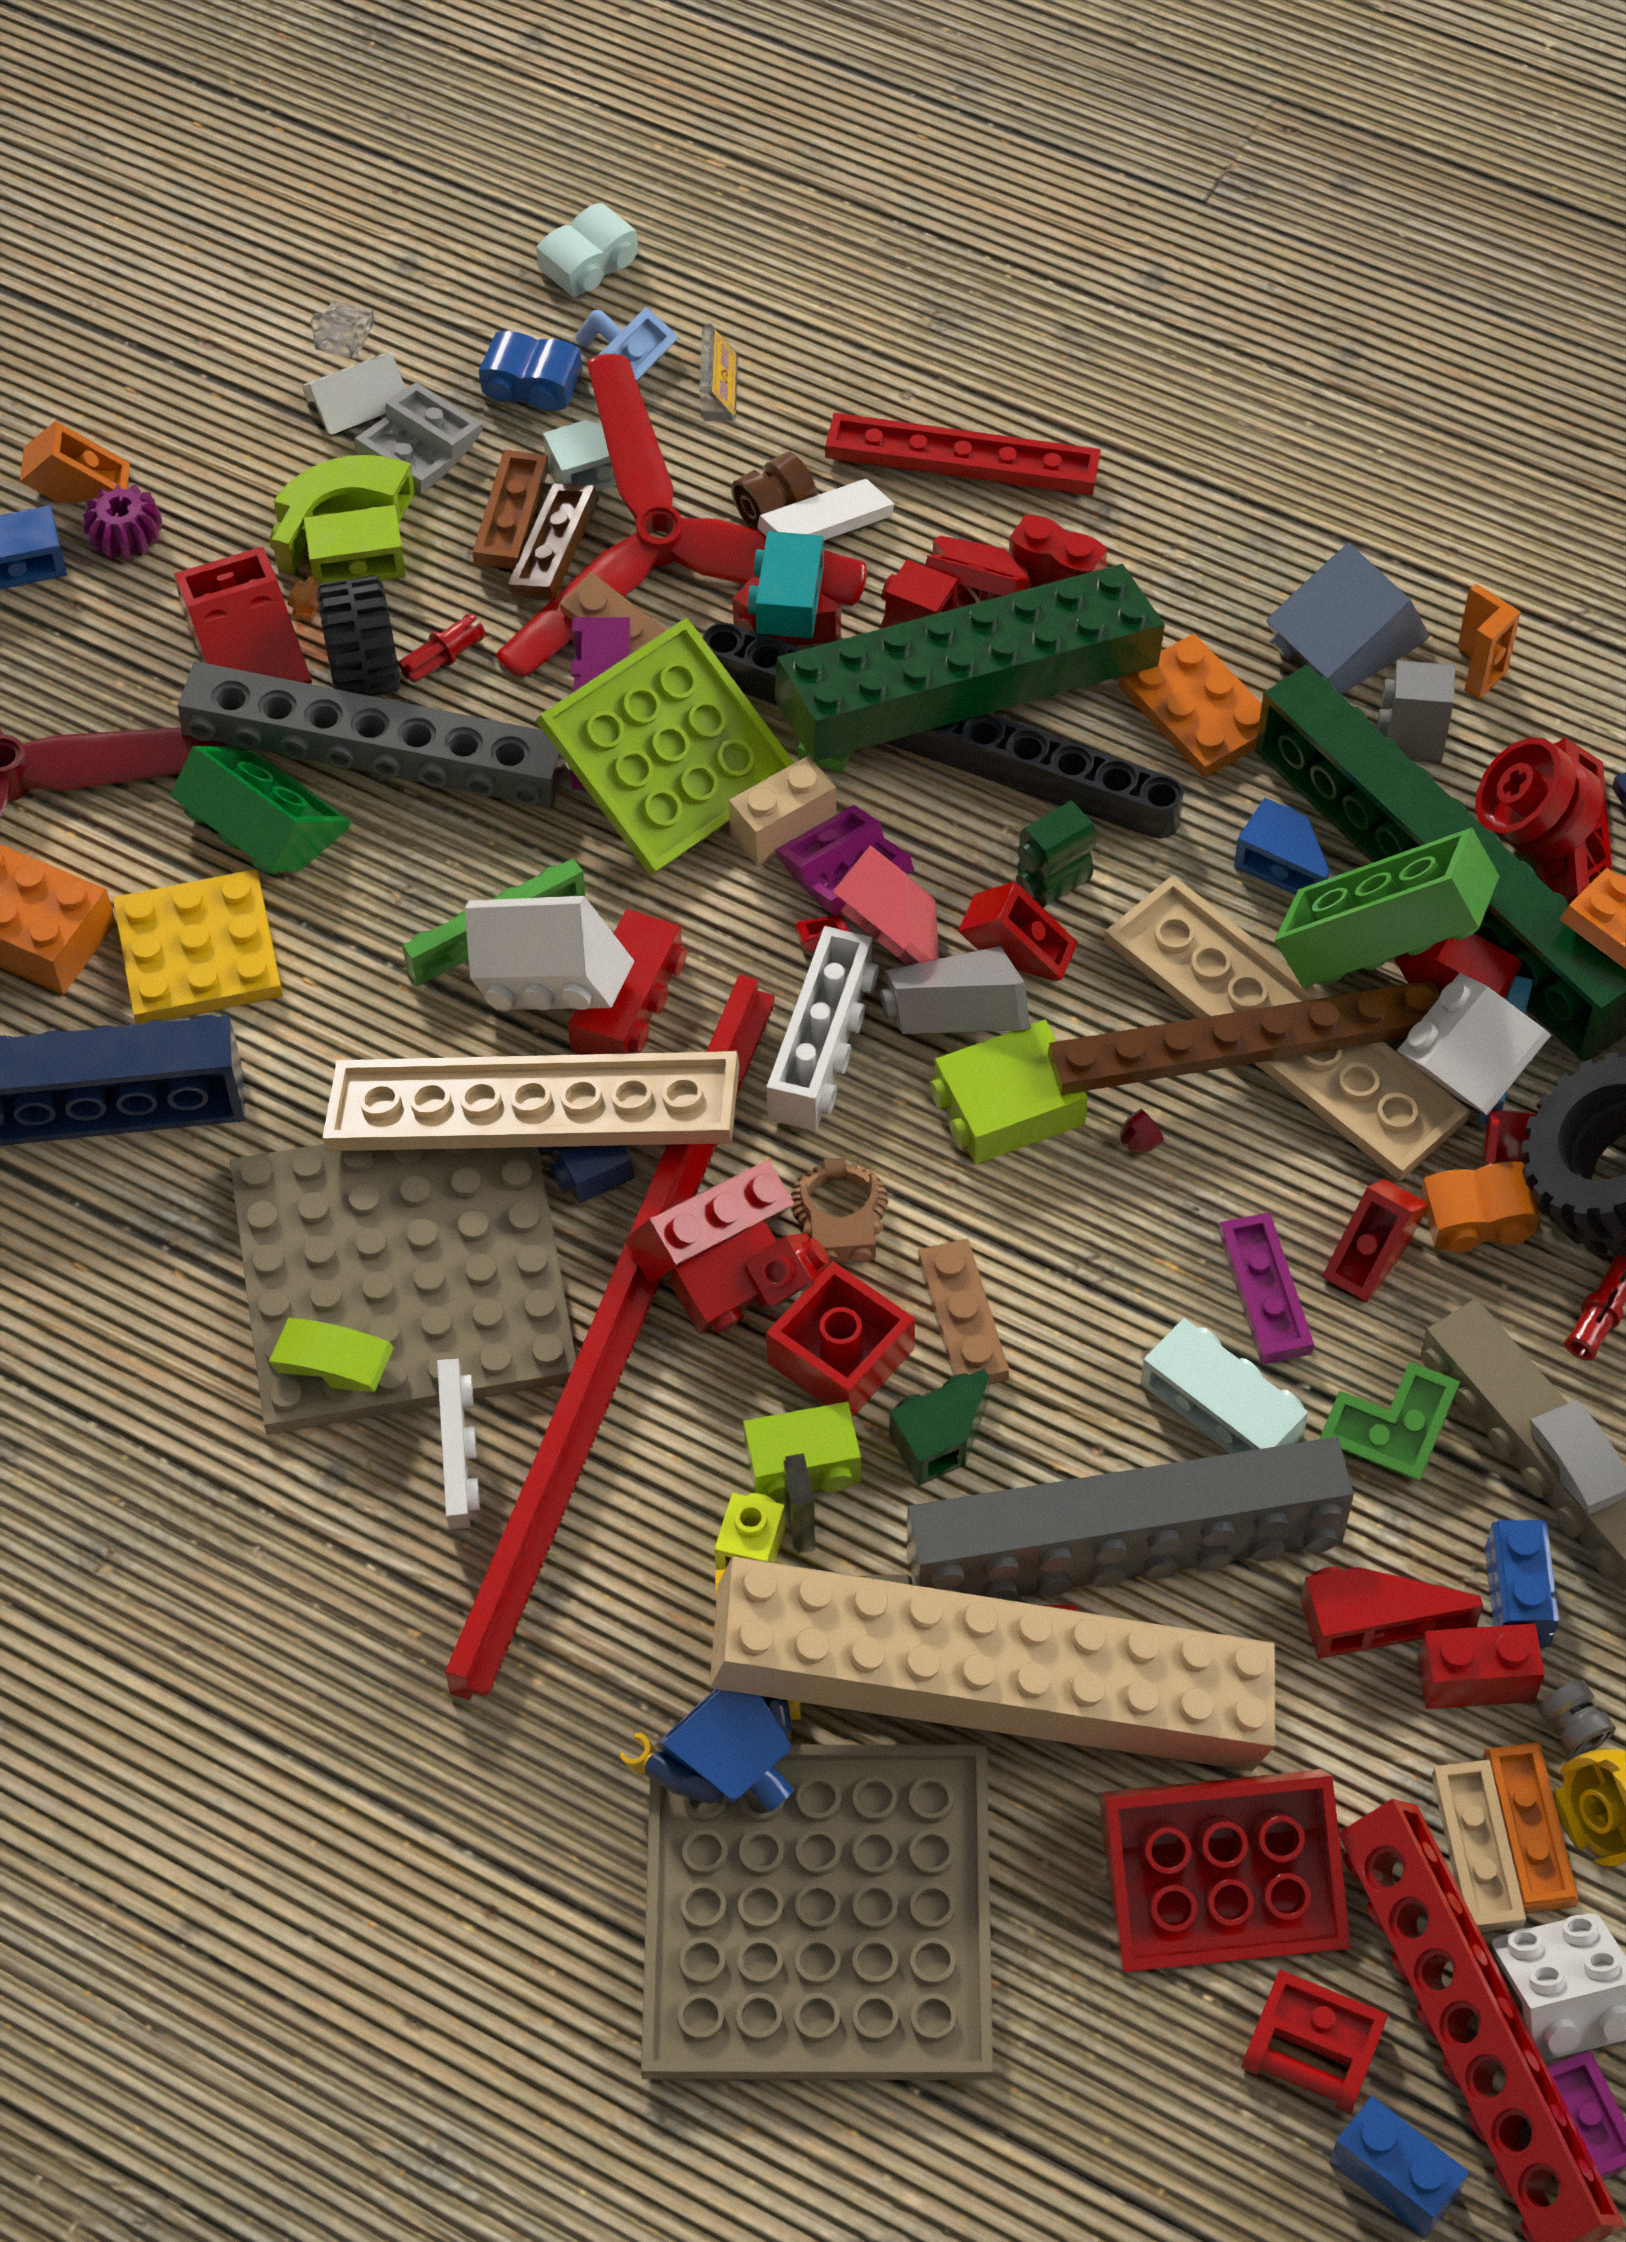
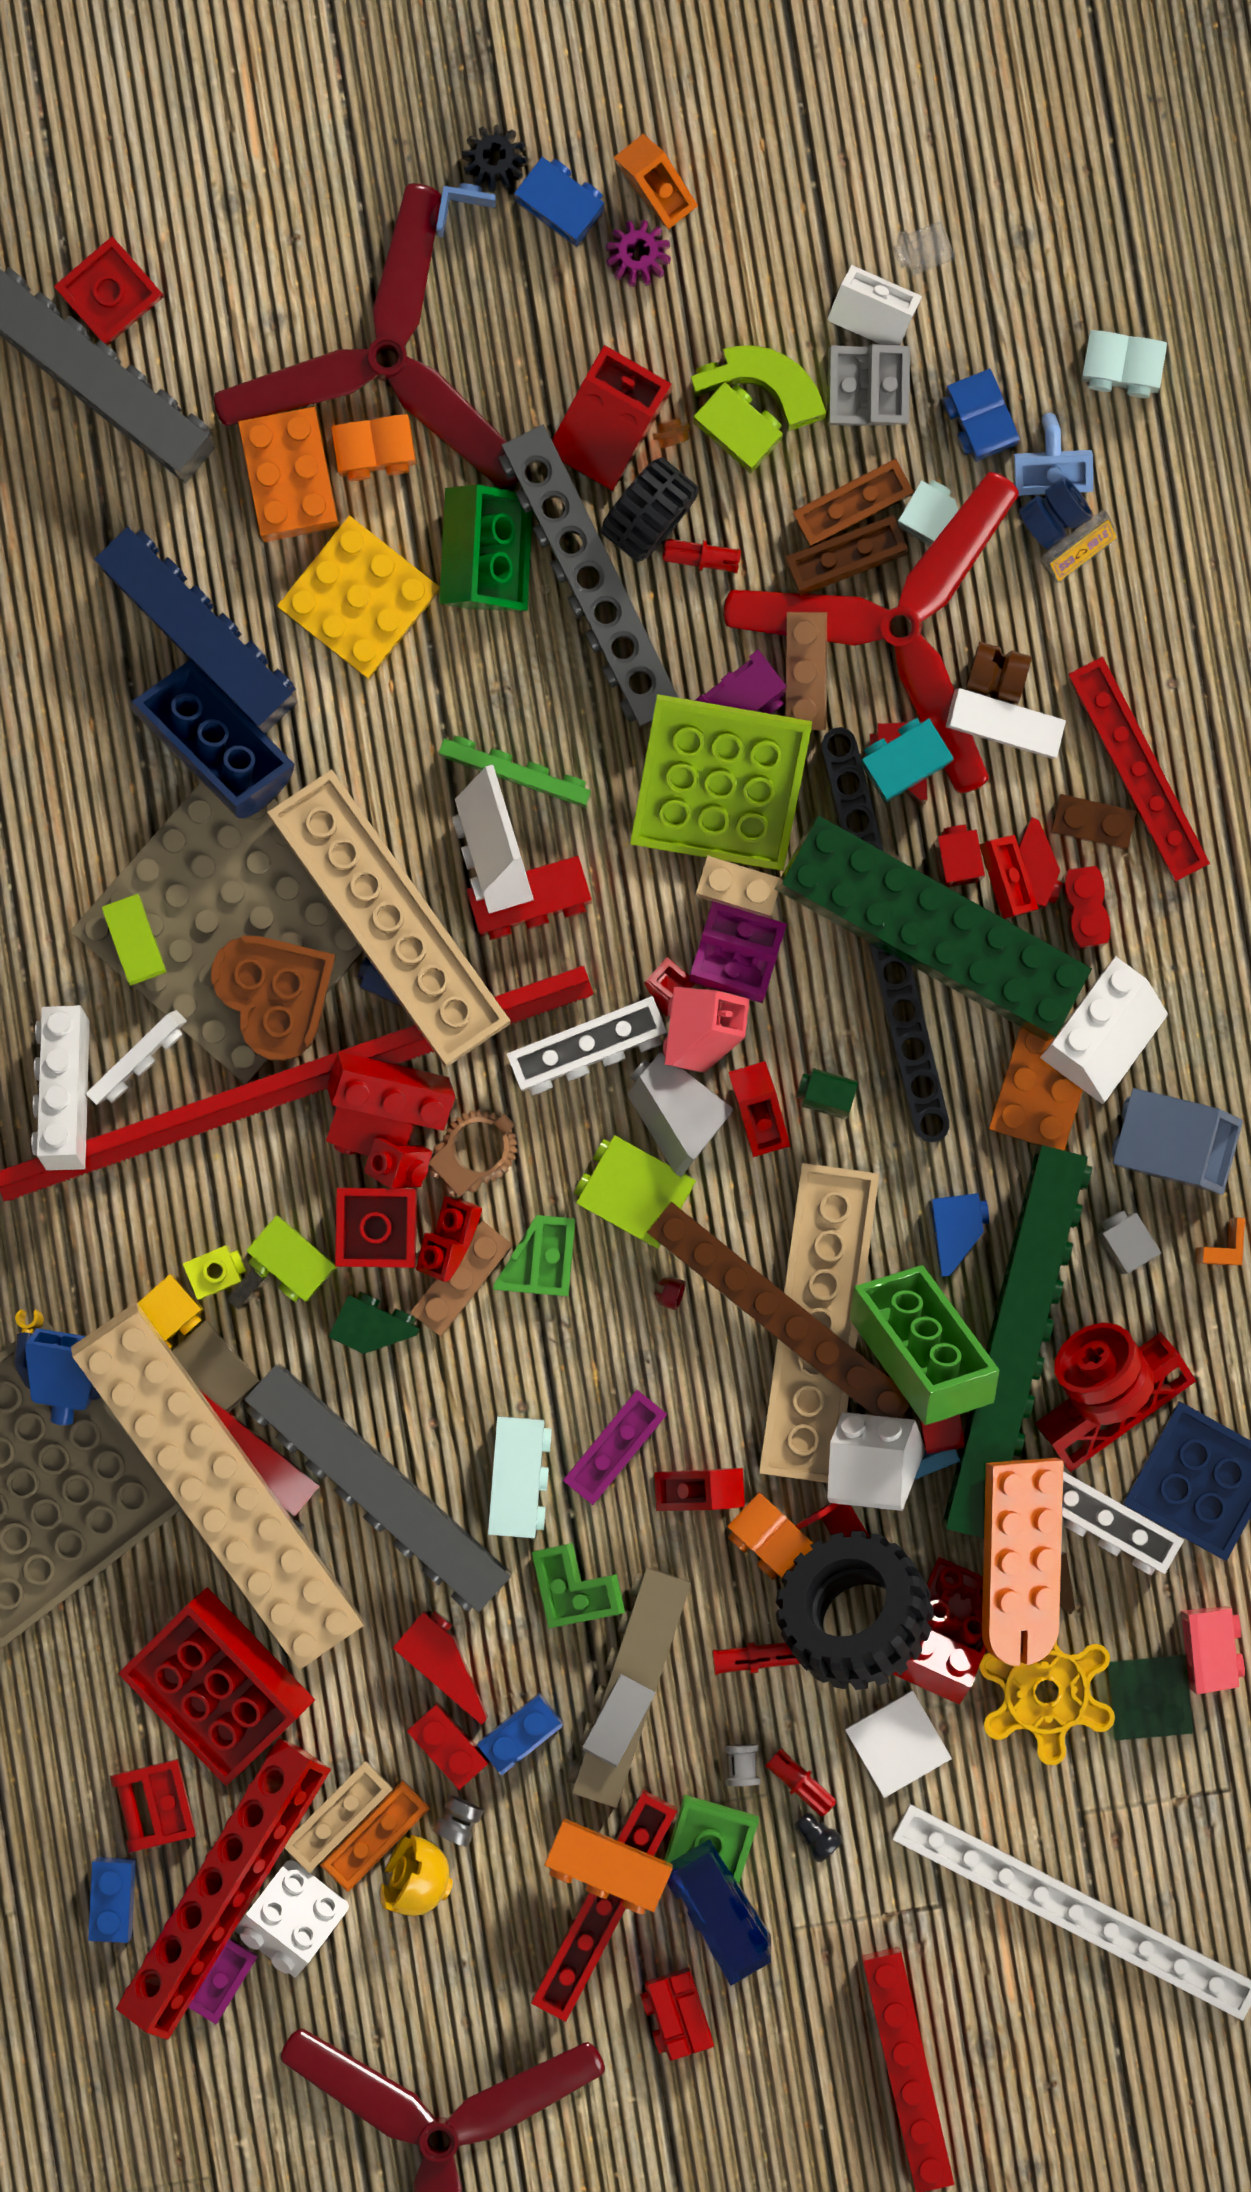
camera: 55 degrees right, 30 degrees up
(73, 828) = (374, 446): none -> orange brick
(205, 1137) = (214, 740): none -> dark blue brick
(420, 1528) = (62, 1088): none -> white brick
(511, 1260) = (275, 990): none -> dark orange plate
(671, 362) = (1051, 516): none -> dark blue wheel
(912, 1285) = (446, 1248): none -> red slope
(982, 514) = (1093, 822): none -> reddish brown plate
(1006, 1223) = (541, 1259): none -> bright green wing
(1194, 605) = (1107, 1030): none -> white slope

